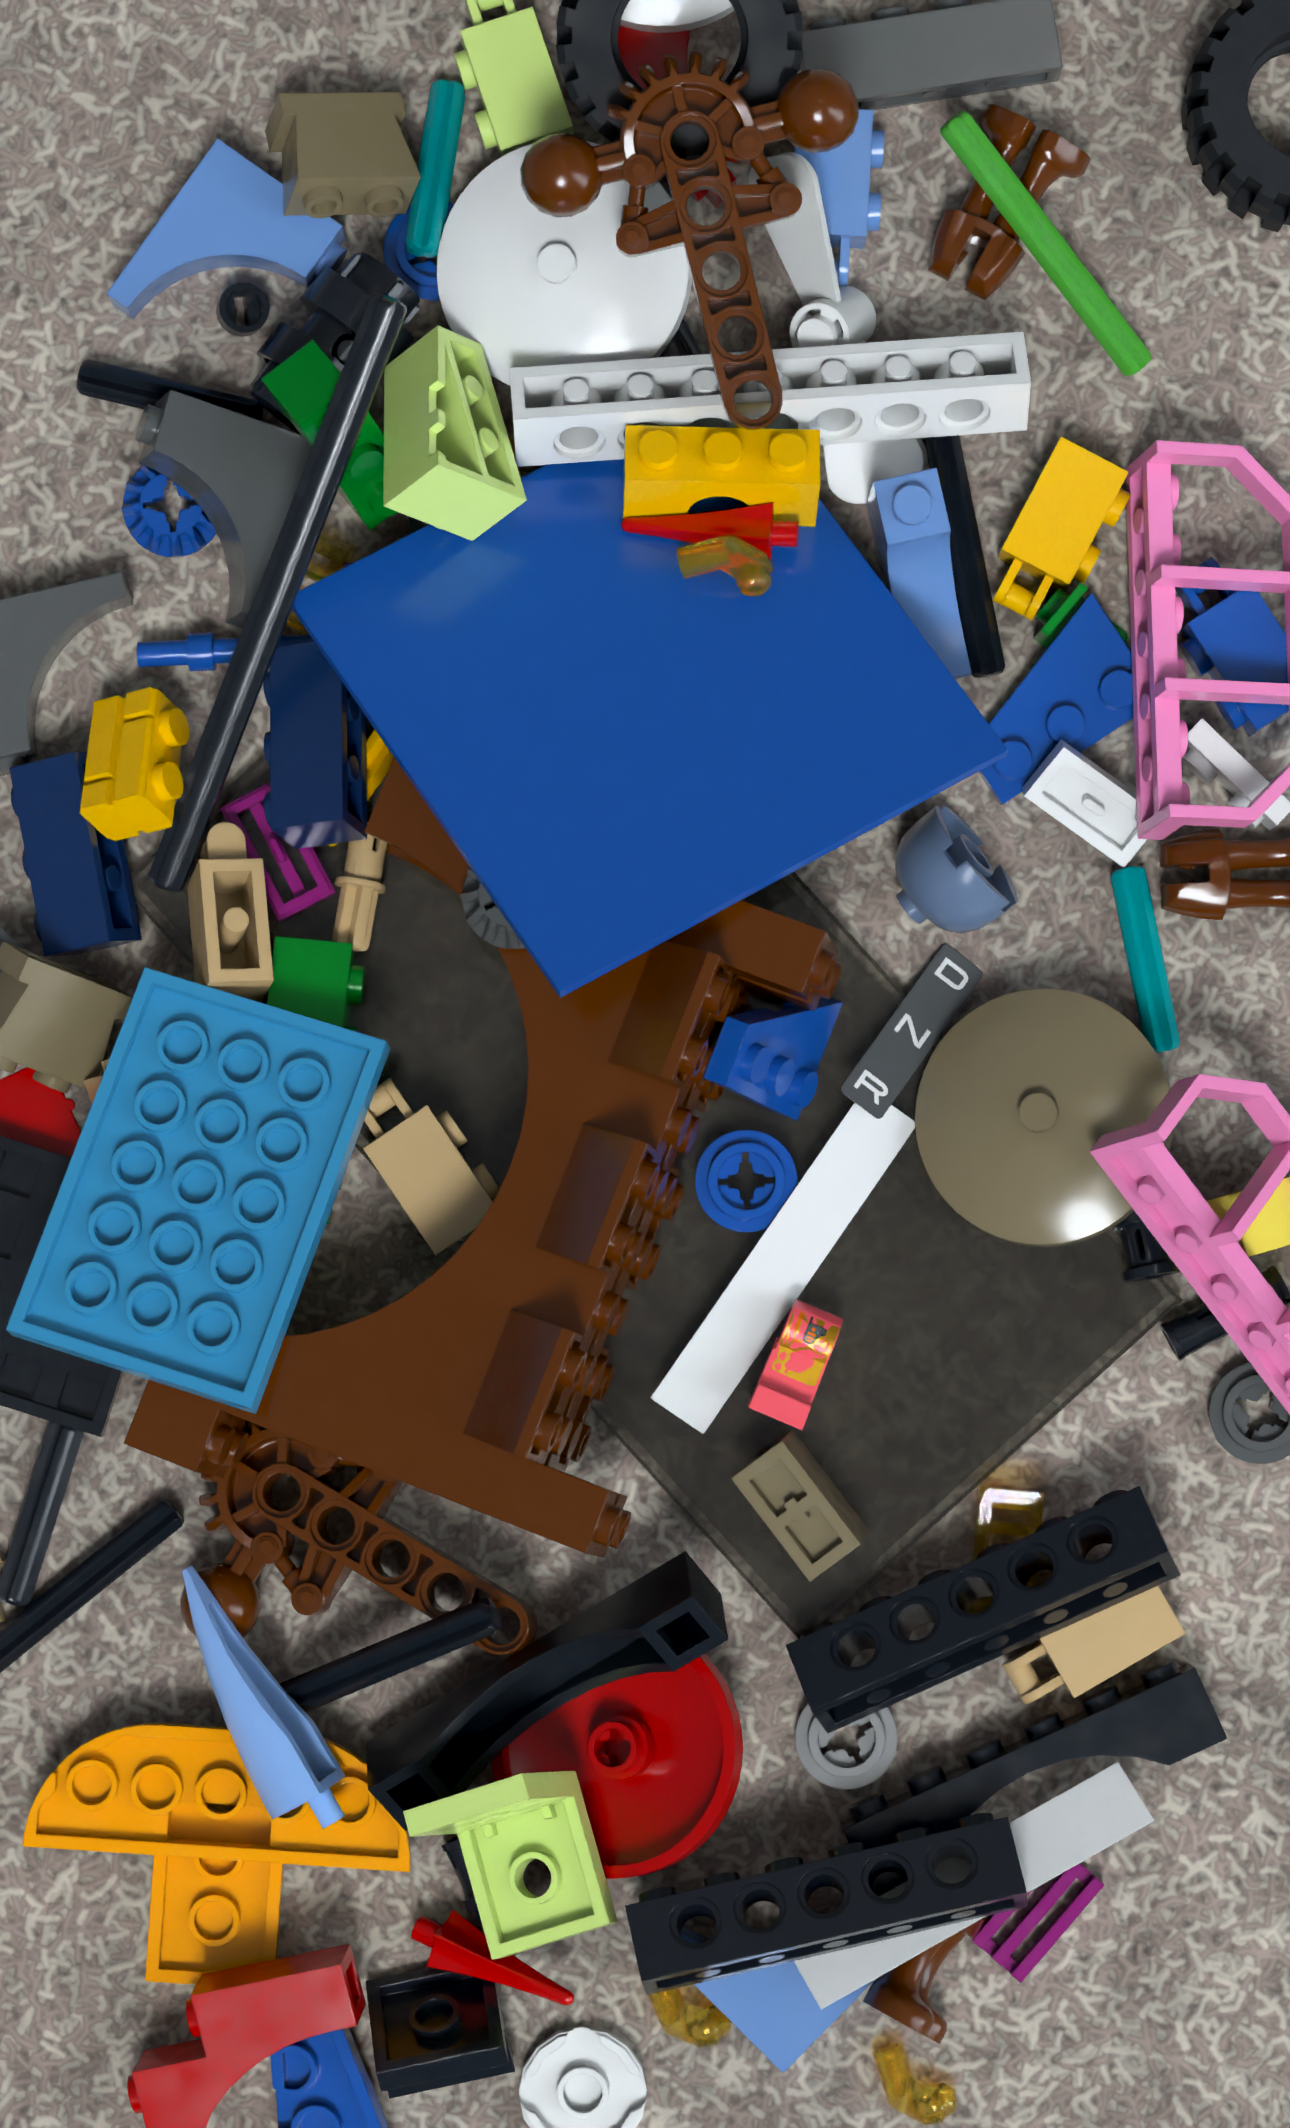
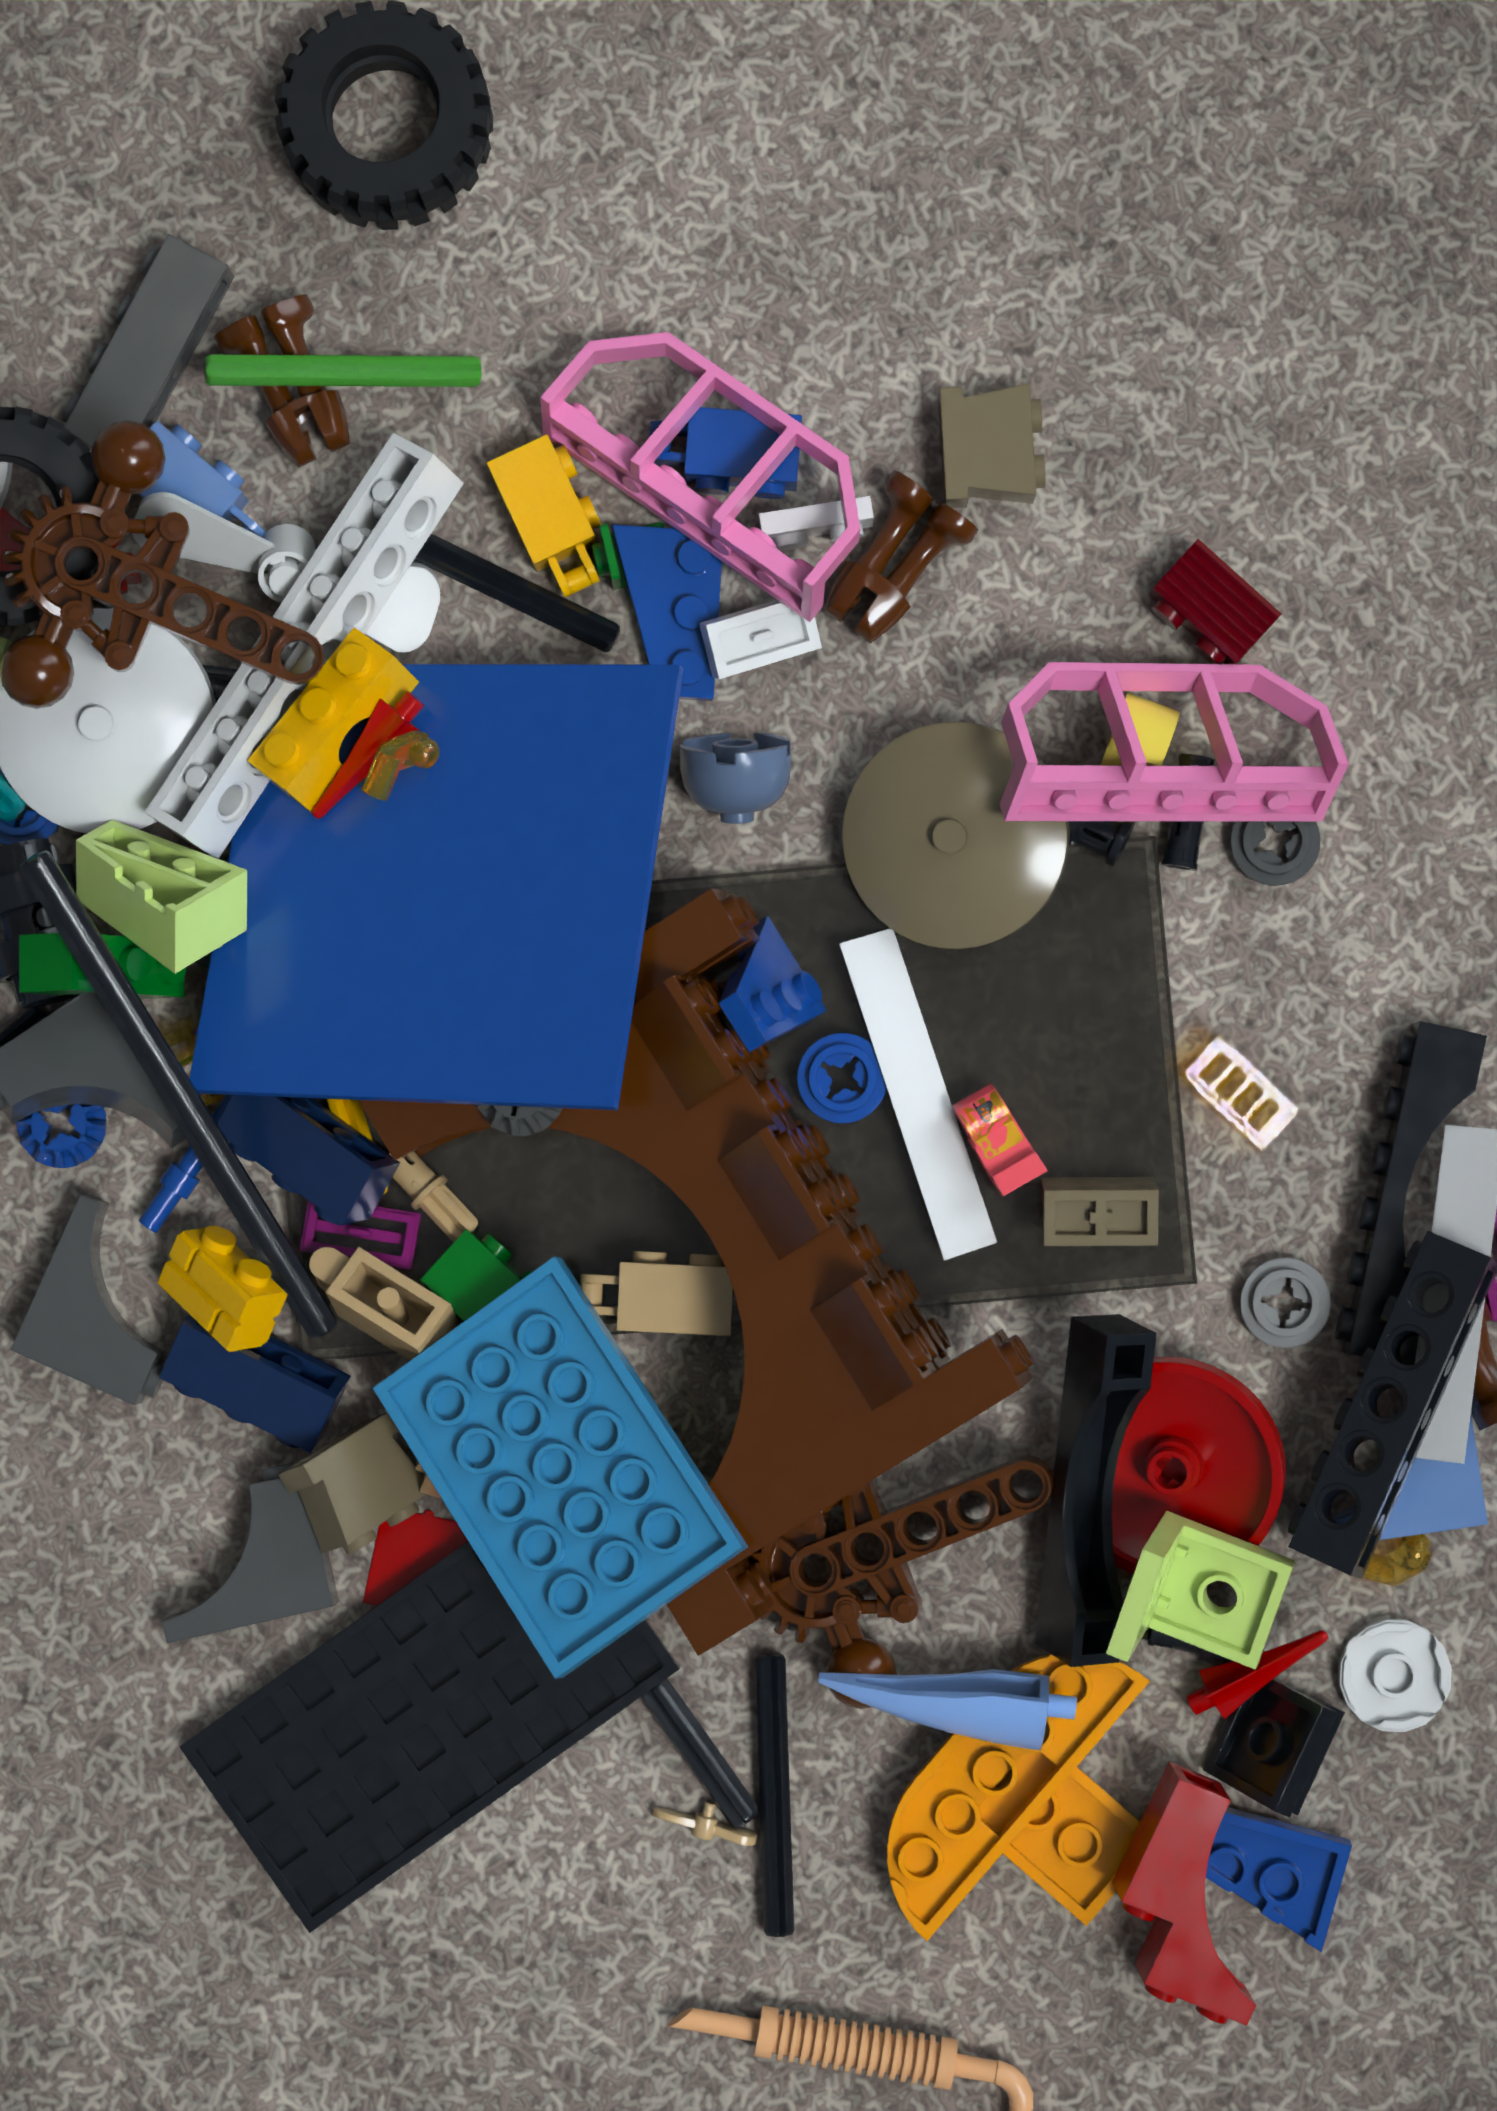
camera: 40 degrees left, 0 degrees up
(394, 1655) = (989, 1576): black axle -> none
(911, 1031) = (825, 882): dark grey sticker -> none
(915, 560) = (495, 629): medium blue arch -> none
(1014, 1618) = (1291, 1120): black brick -> none
(1096, 1646) = (1343, 1072): tan brick -> none
(1145, 958) = (896, 680): teal axle -> none

